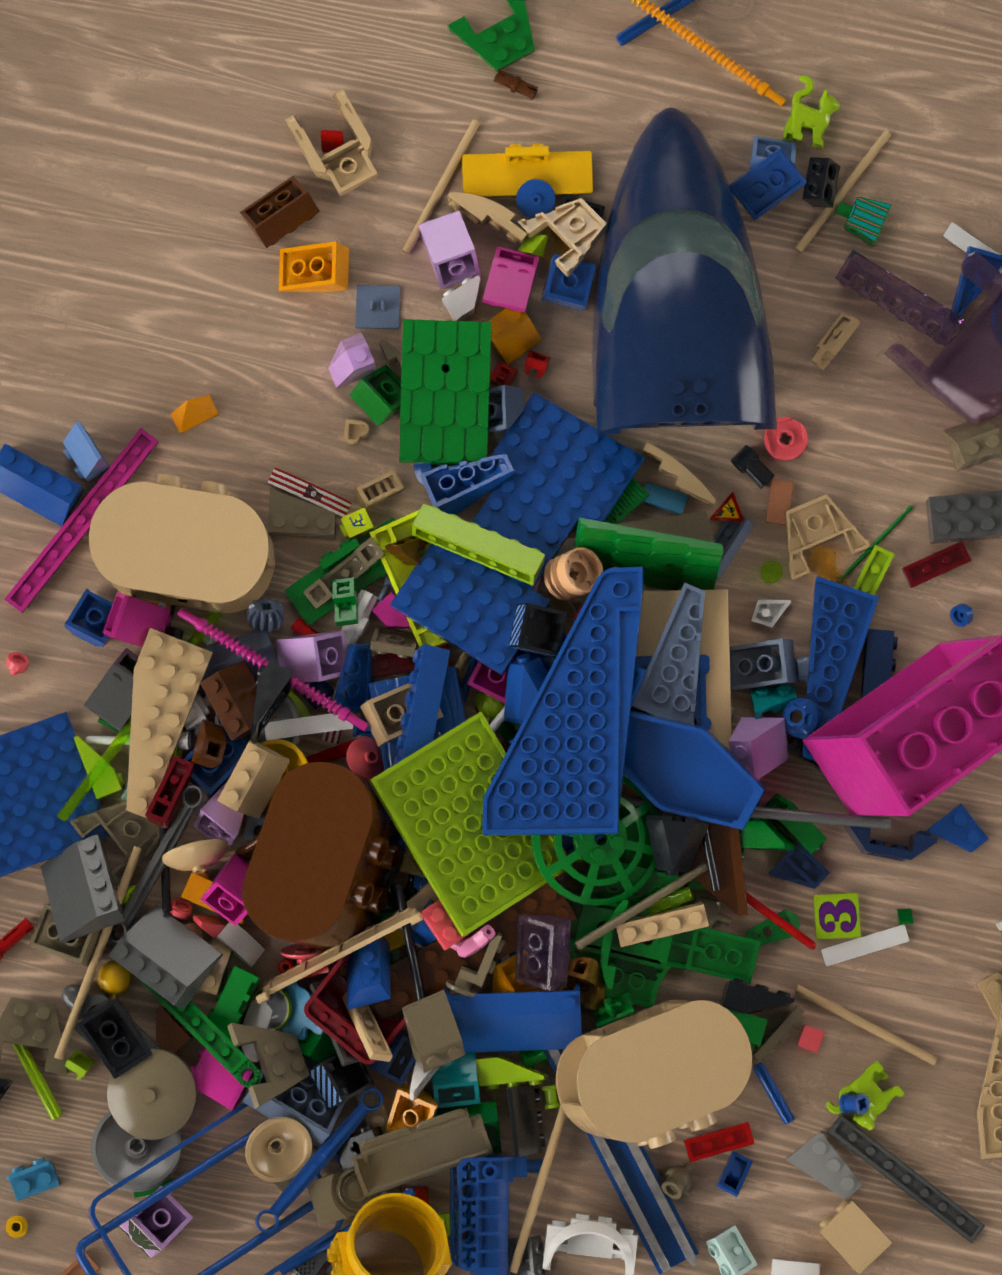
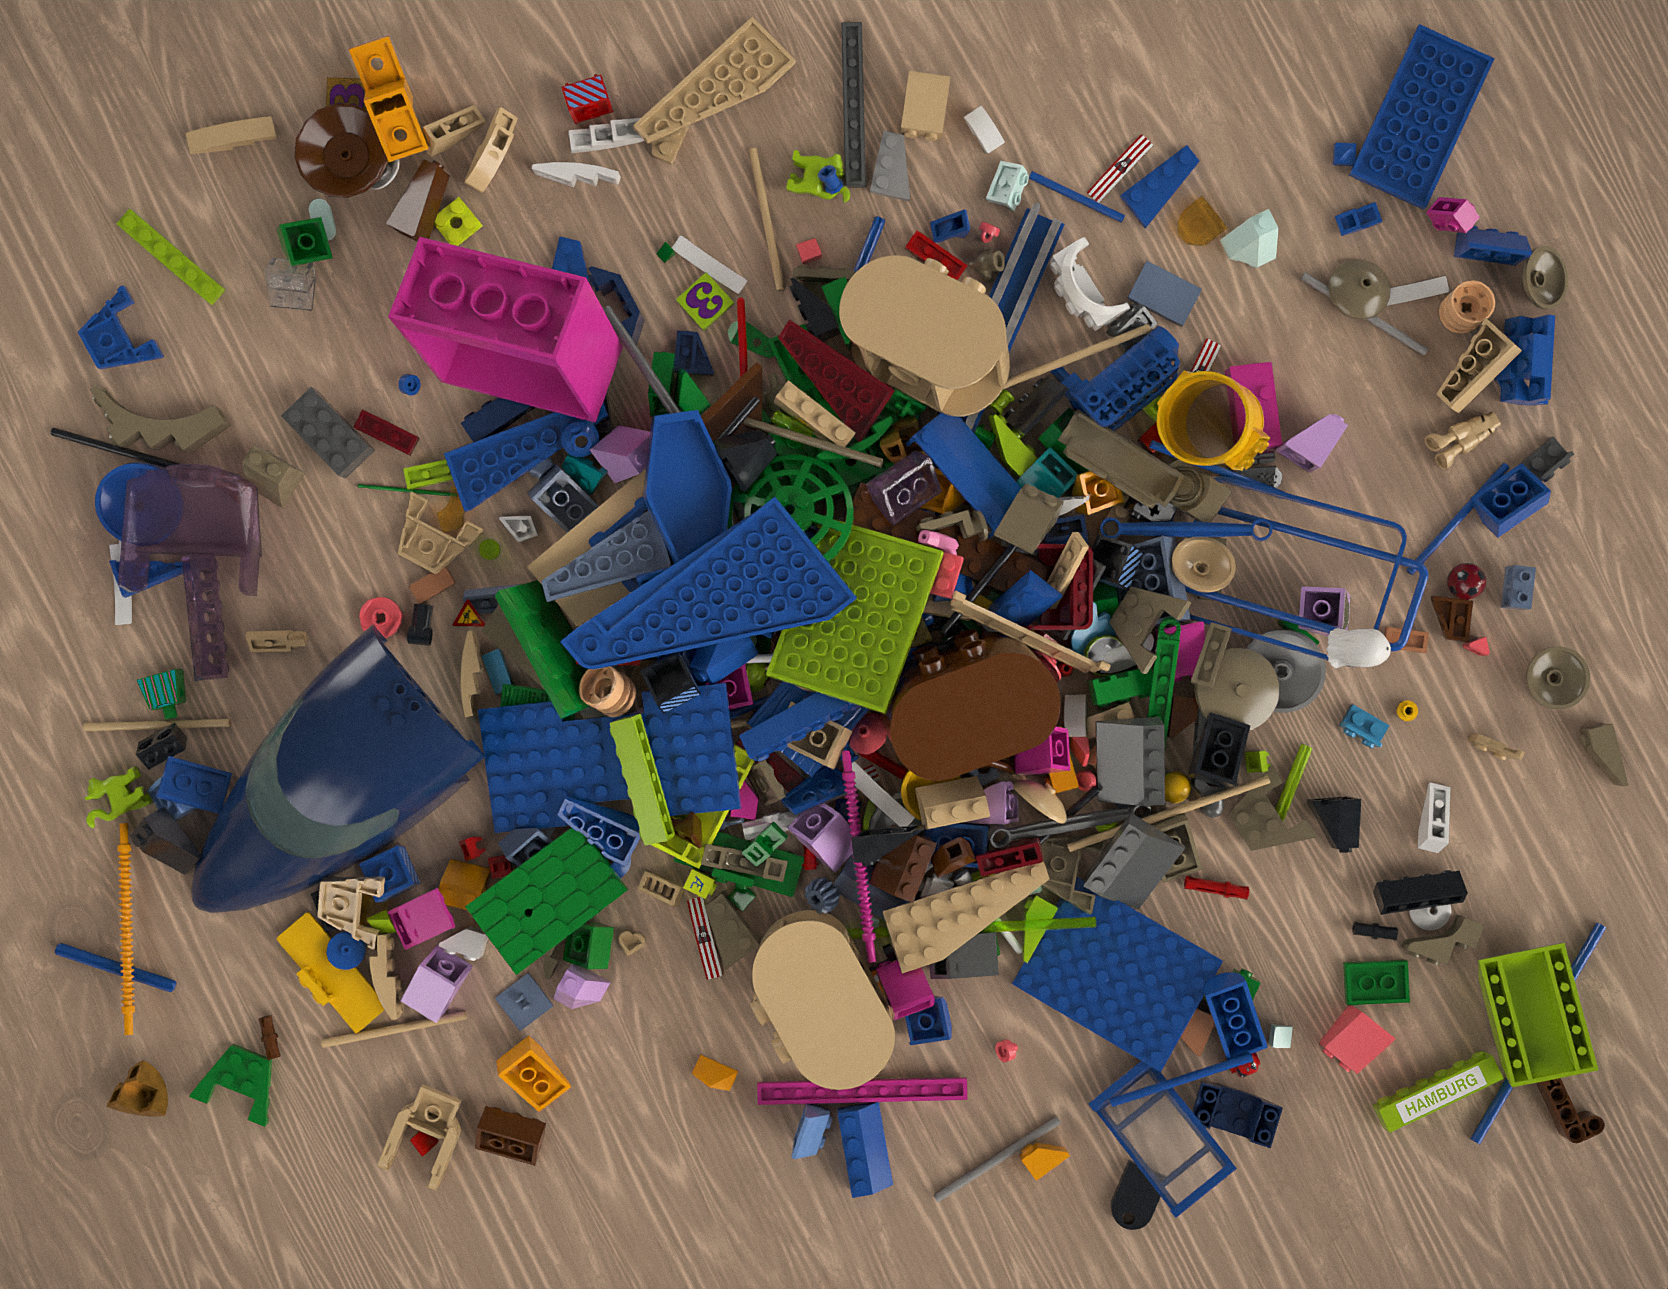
camera: 125 degrees left, 5 degrees up
(106, 1213) = (1357, 648): none -> white piece
(198, 1093) = (1211, 655): none -> dark tan plate
(317, 548) = (742, 897): none -> green slope
(670, 971) = (846, 387): none -> dark red wing
(706, 1206) = (990, 229): none -> coral tile
(739, 126) = (166, 841): none -> black slope

